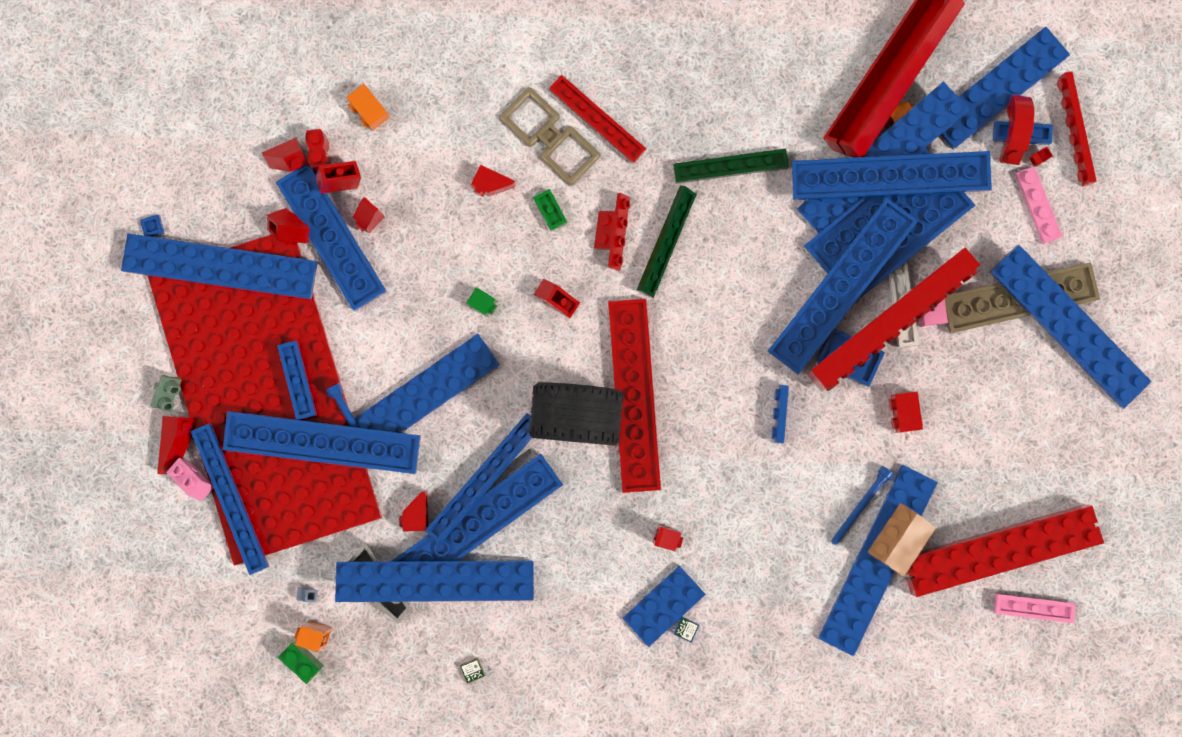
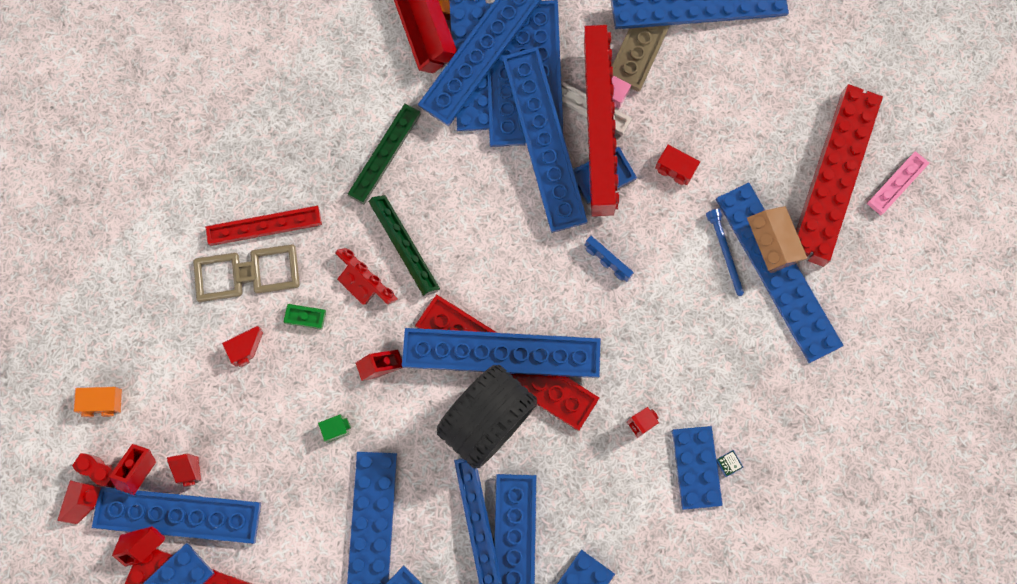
camera: 60 degrees left, 10 degrees down
(640, 388) = (514, 352): none -> blue plate

